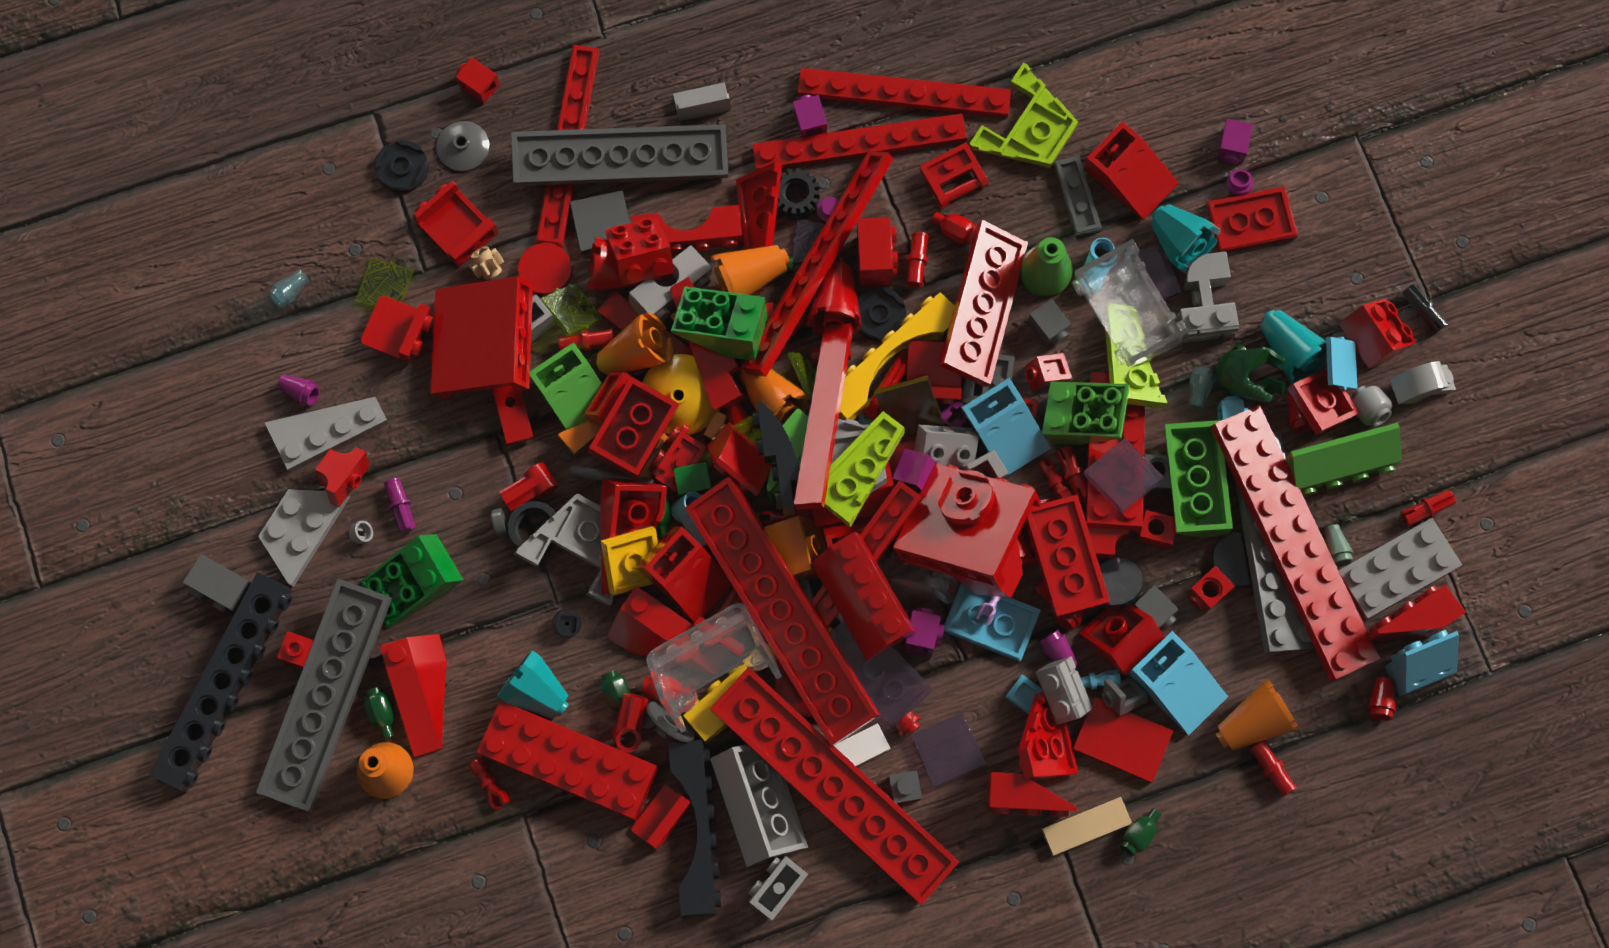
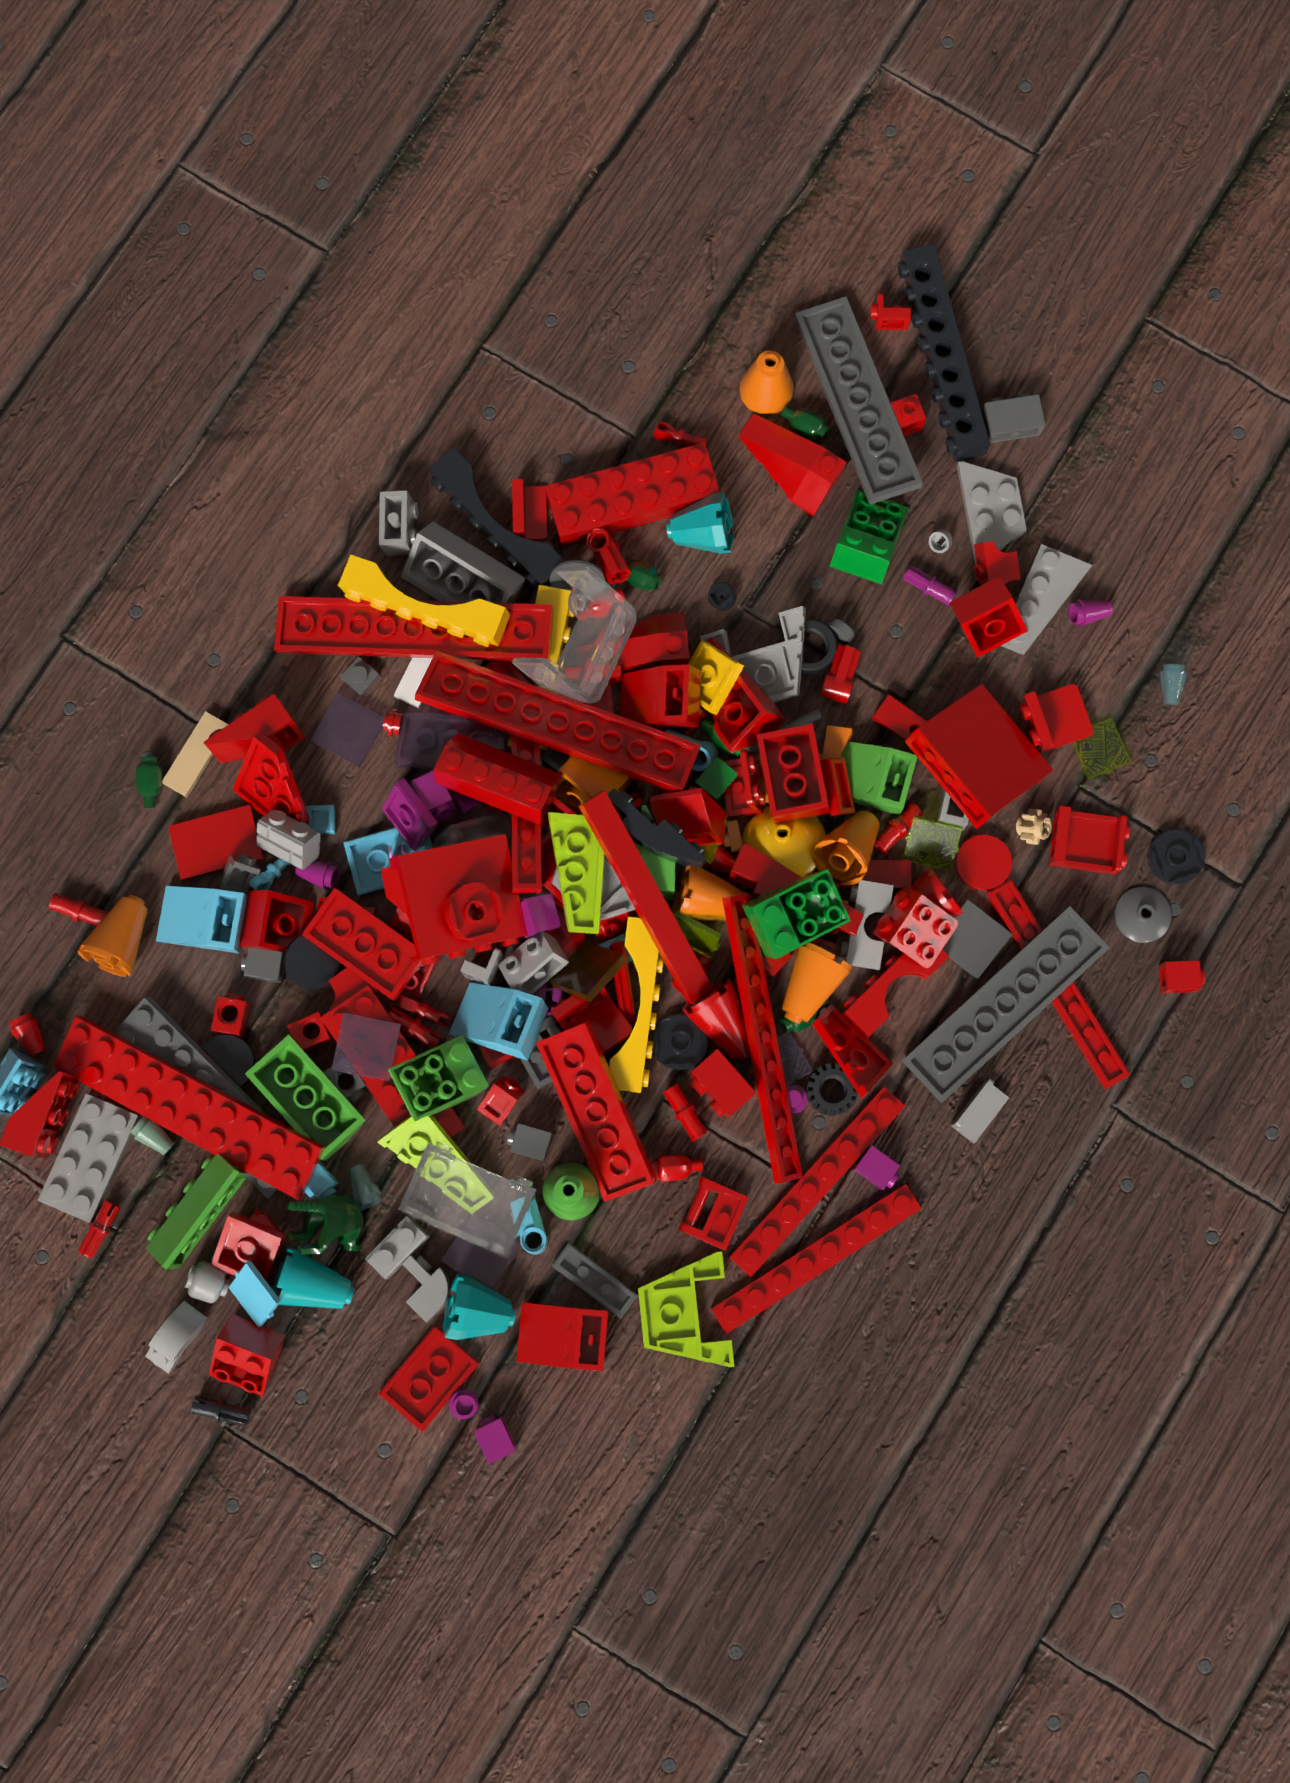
camera: 140 degrees right, 5 degrees up
(234, 744) = (889, 318): none -> red bracket
(381, 435) = (988, 616): none -> red brick
(840, 844) = (475, 619): none -> yellow arch
(954, 630) = (409, 815): none -> magenta tile

